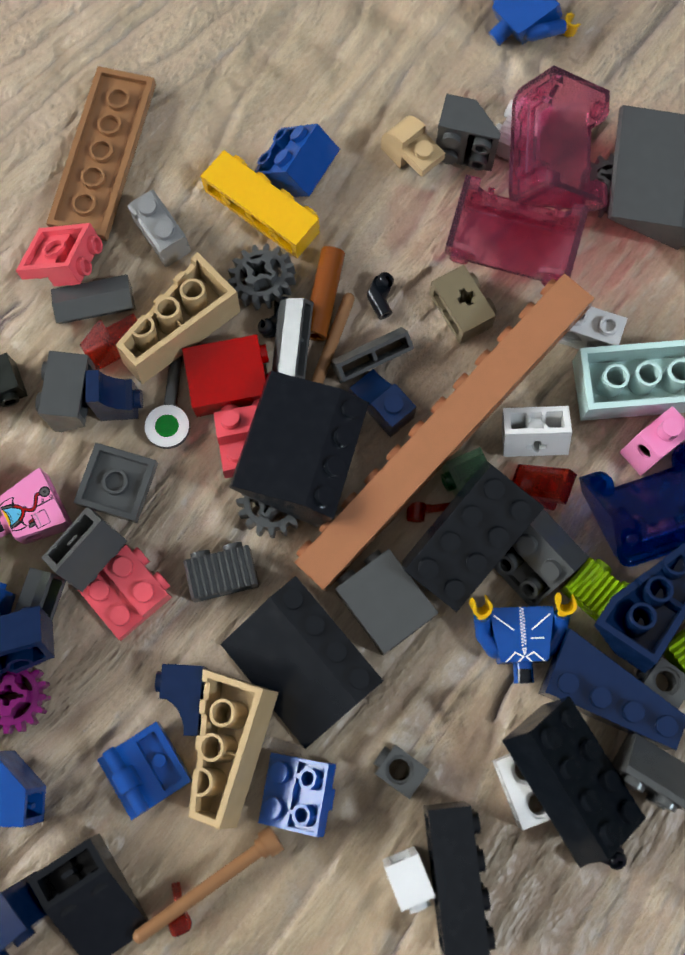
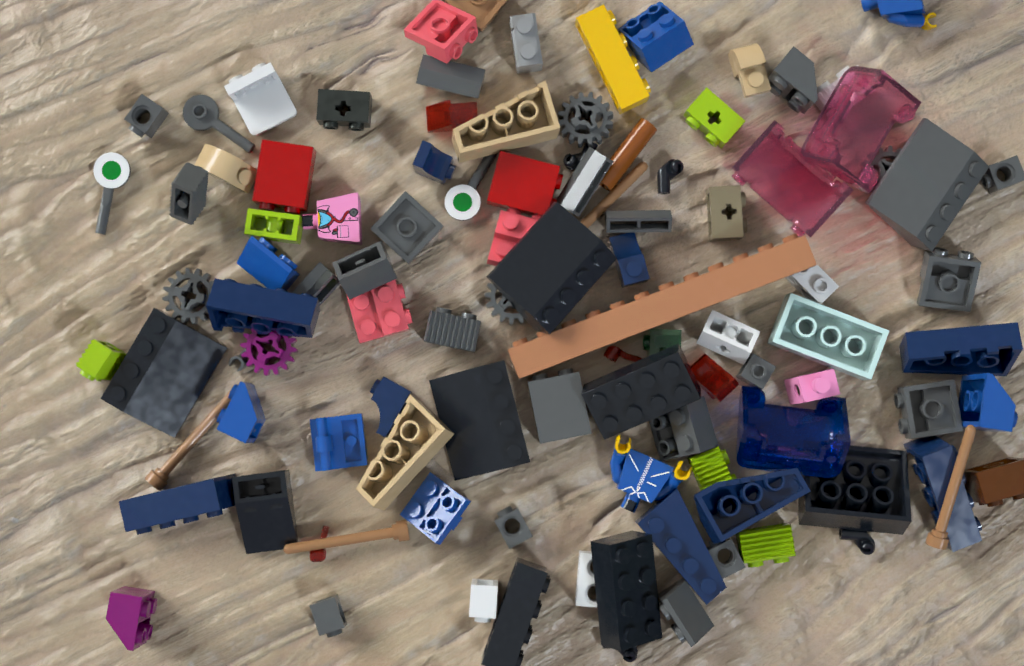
camera: 20 degrees right, 10 degrees up
(64, 390) = (401, 145): dark grey slope -> none
(391, 201) = (706, 107): none -> lime brick
(587, 454) = (755, 371): none -> dark grey brick

